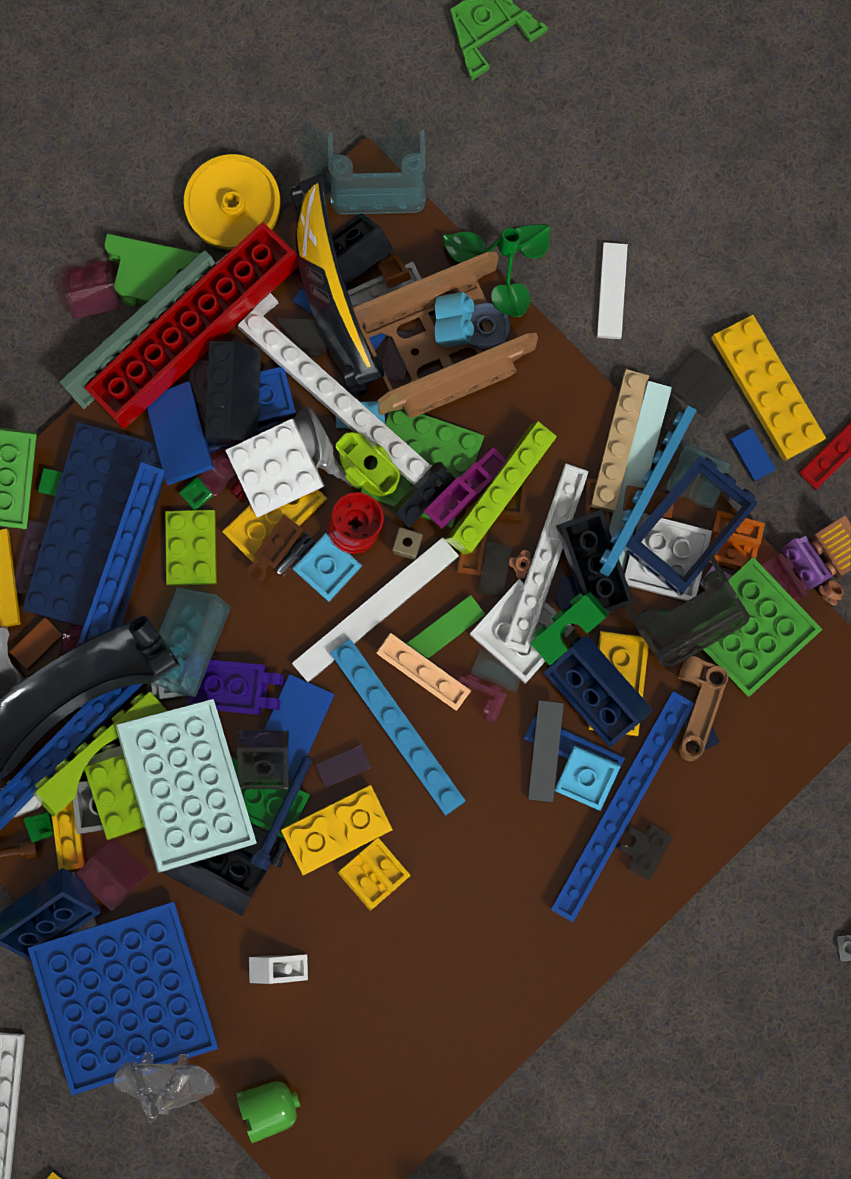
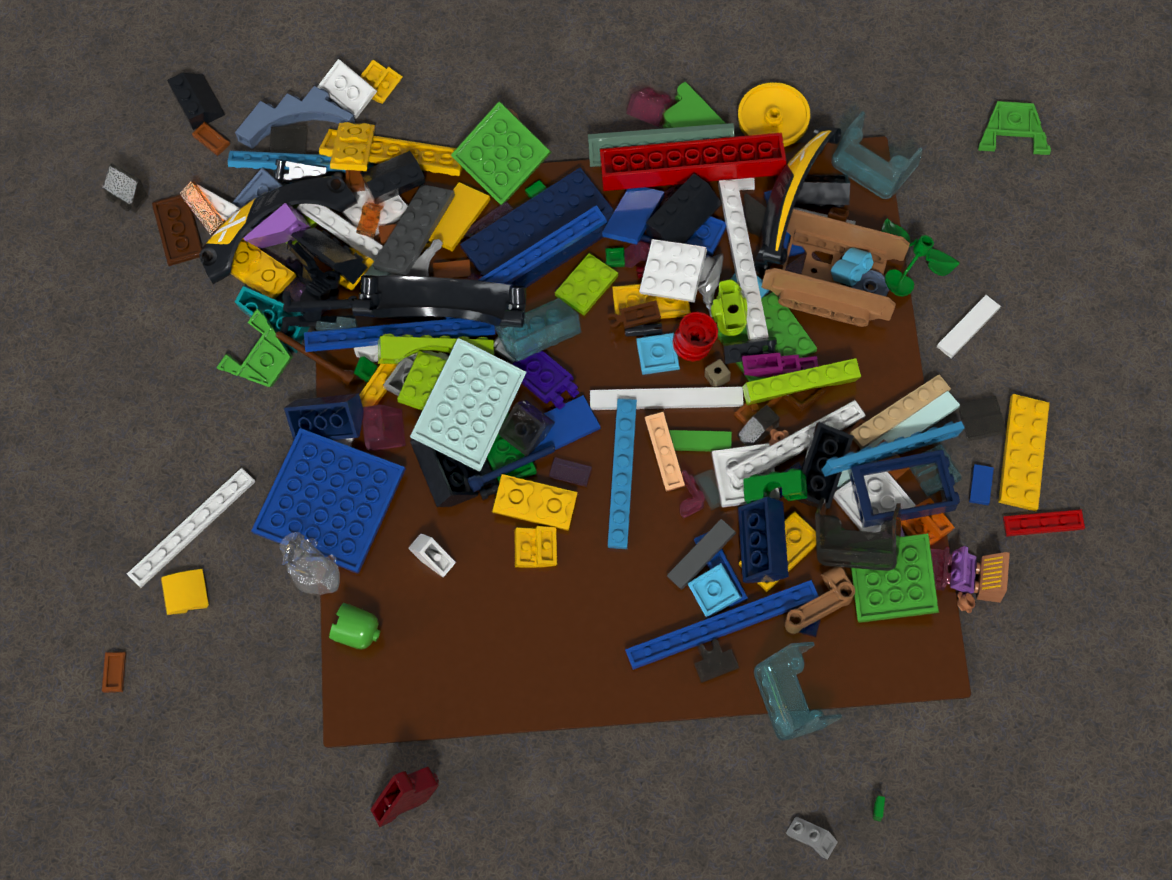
camera: 45 degrees right, 15 degrees down
(744, 833) = (784, 695): none -> clear light blue windscreen

